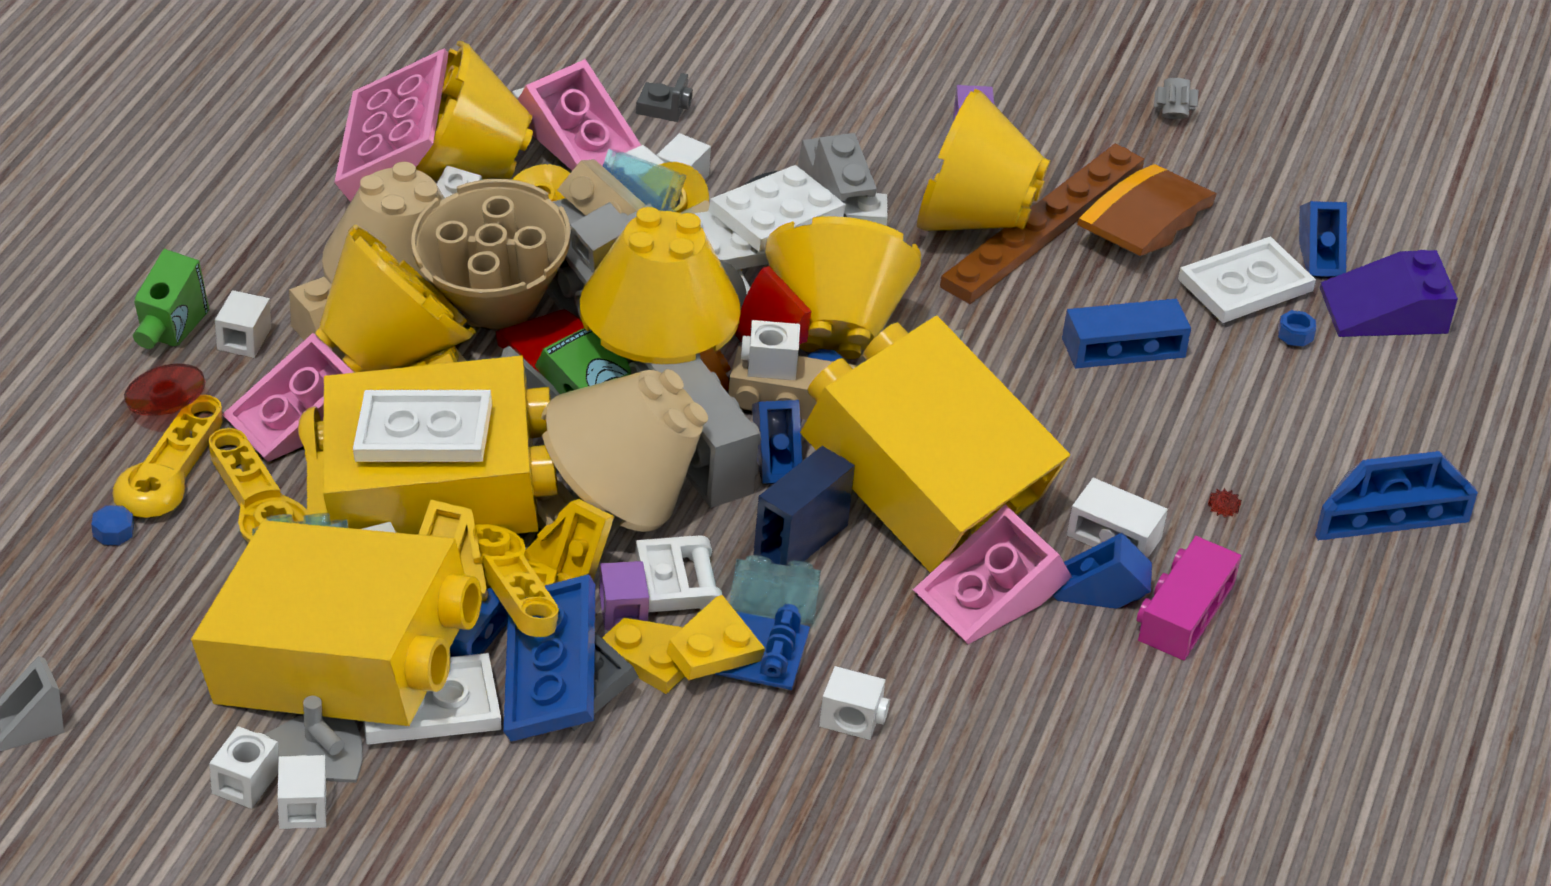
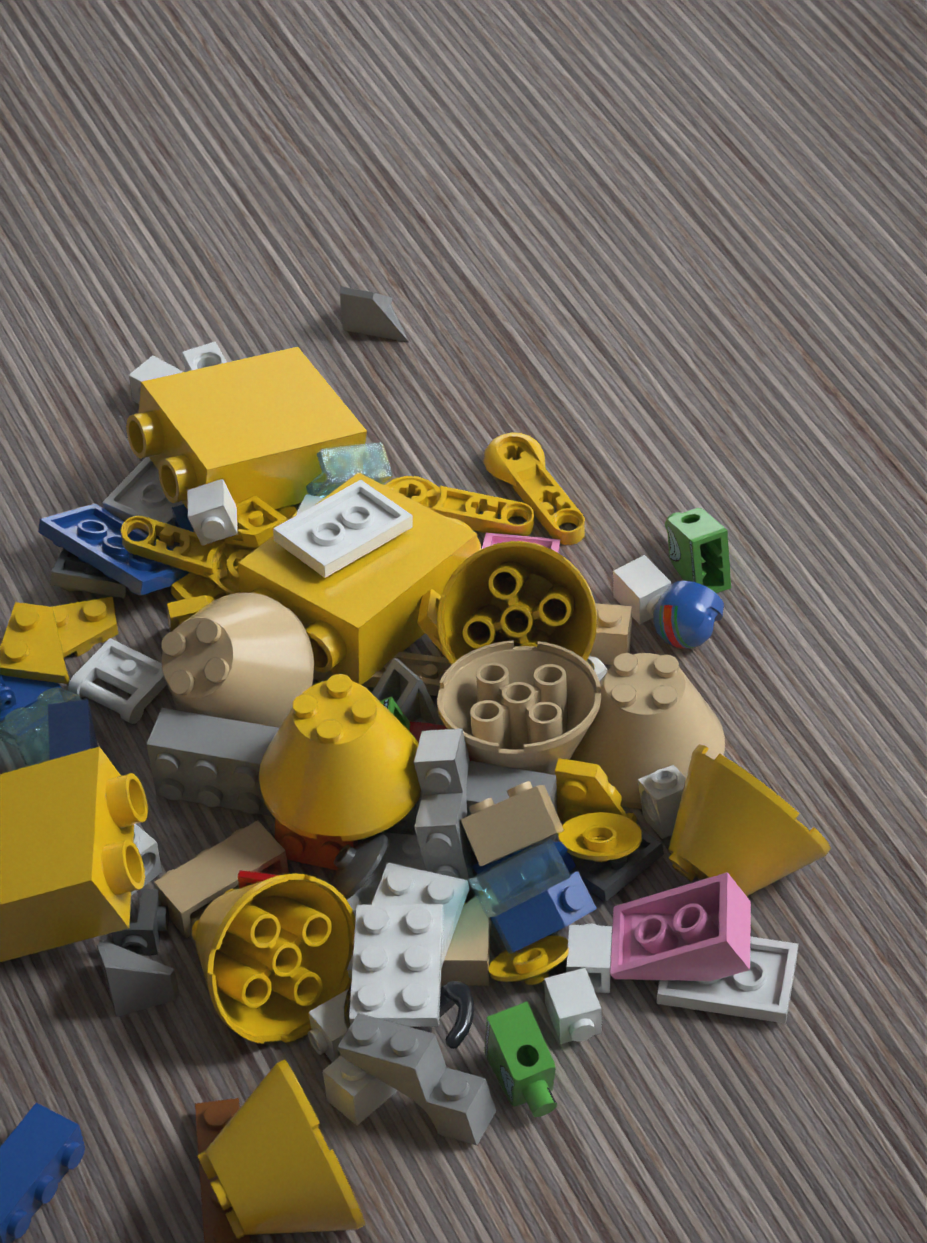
camera: 140 degrees right, 5 degrees up
(112, 525) = (498, 423): blue tile -> none
(164, 389) = (605, 506): clear red dish -> none
(261, 267) = (687, 614): none -> blue helmet
(391, 121) = (809, 786): bright pink slope -> none
(482, 544) = (212, 512): none -> white brick
(623, 592) = (133, 627): medium lavender brick -> none
(664, 101) = (693, 1074): dark grey bracket -> none
(758, 147) = (521, 1058): none -> bright green torso
(772, 350) = (238, 842): white brick -> none
(780, 438) = (181, 825): blue slope -> none

